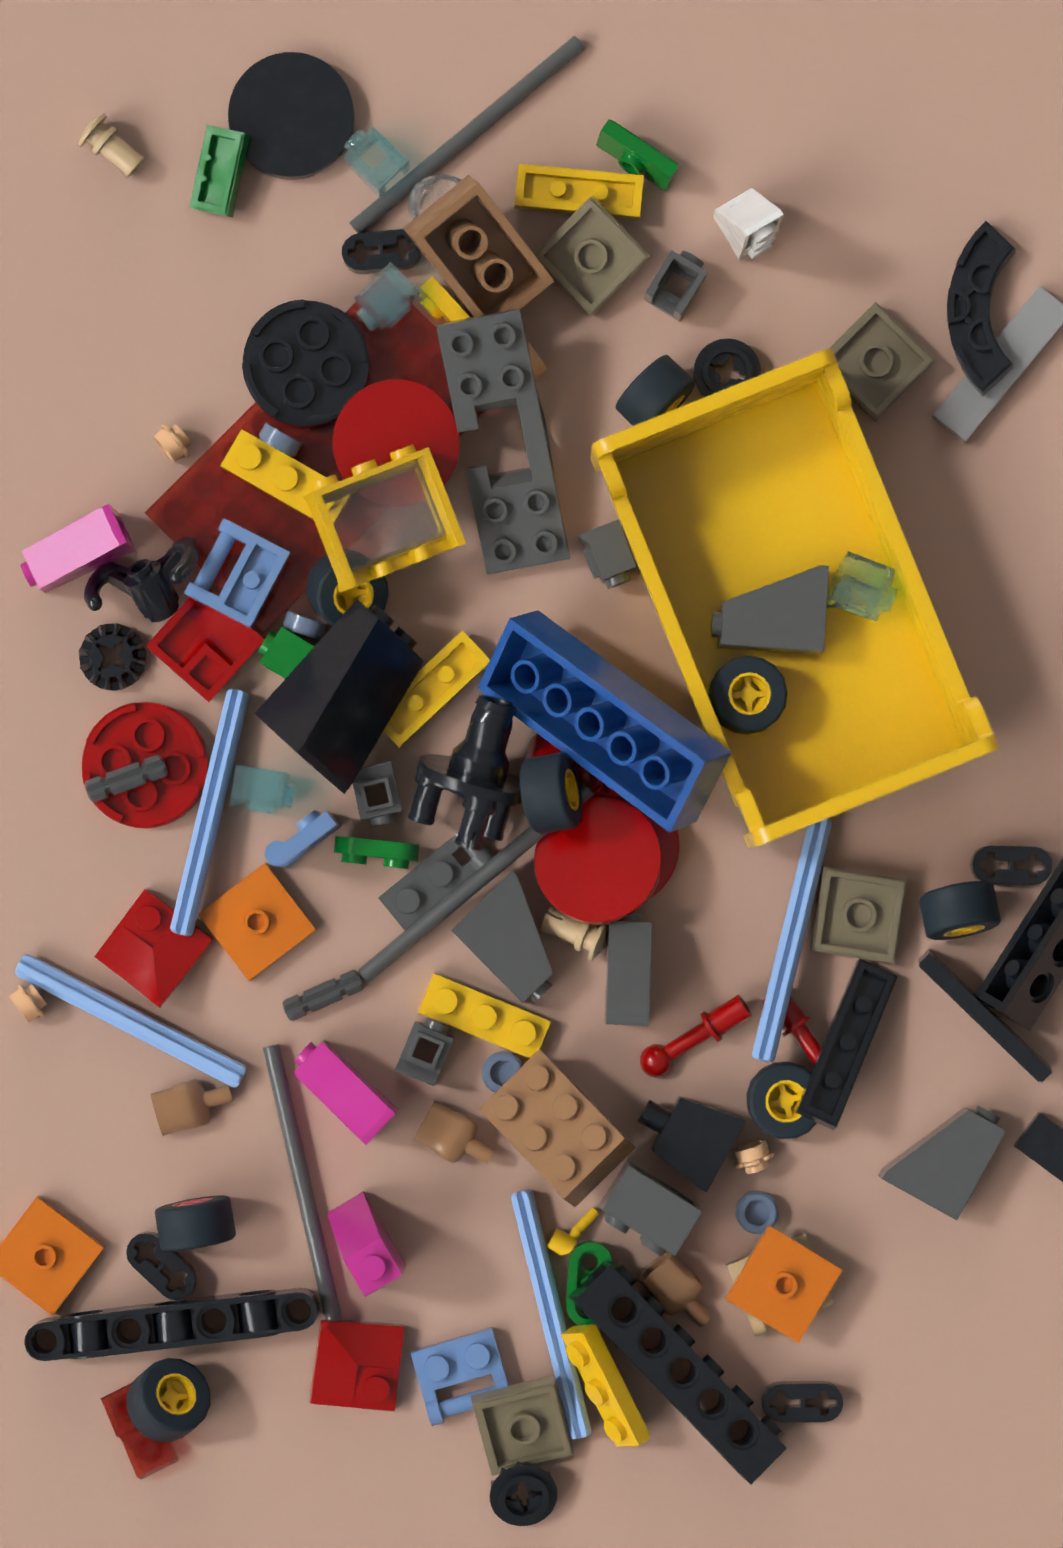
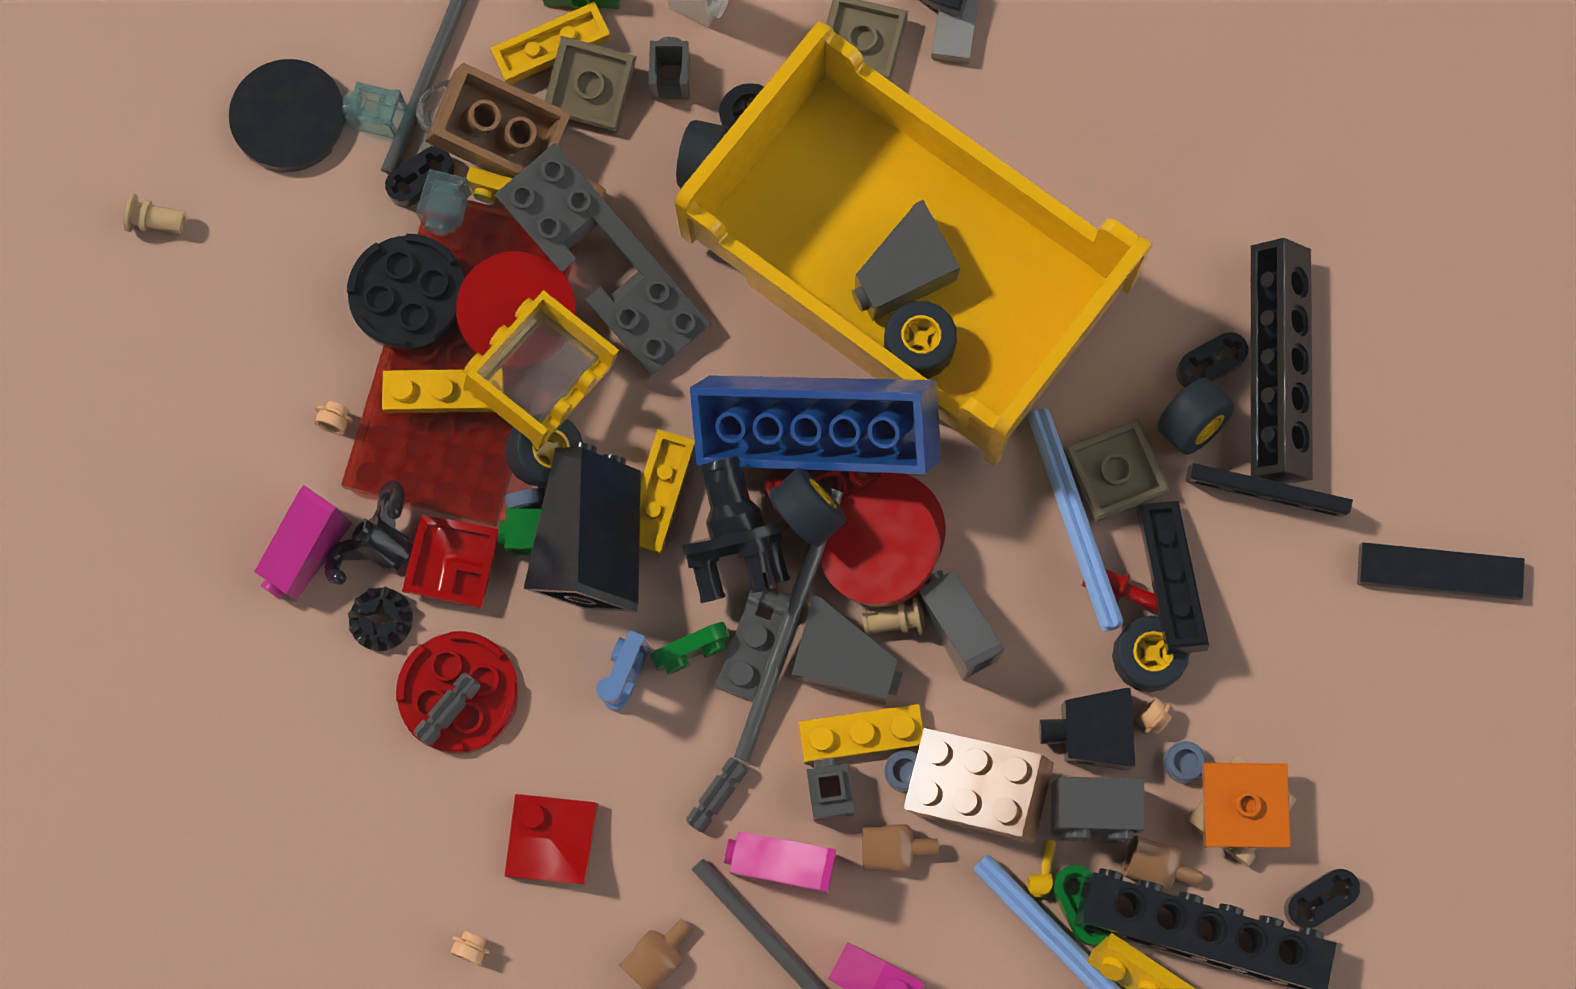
camera: 30 degrees left, 10 degrees down
(130, 1020) = (566, 912): light blue axle -> none
(209, 812) = (534, 699): light blue axle -> none
(219, 171) = (252, 186): green plate -> none
(249, 580) = (458, 486): medium blue plate -> none
(257, 921) = (626, 766): orange plate -> none
(261, 789) = (566, 653): clear light blue window -> none
(280, 440) = (419, 360): sand blue tile -> none
(373, 775) = (678, 613): dark grey window -> none
(608, 554) = (739, 302): dark grey window -> none
(658, 1059) = (1025, 684): red pin -> none
(862, 587) = (959, 203): clear light blue window -> none
(947, 1161) = (1315, 625): dark grey slope -> none

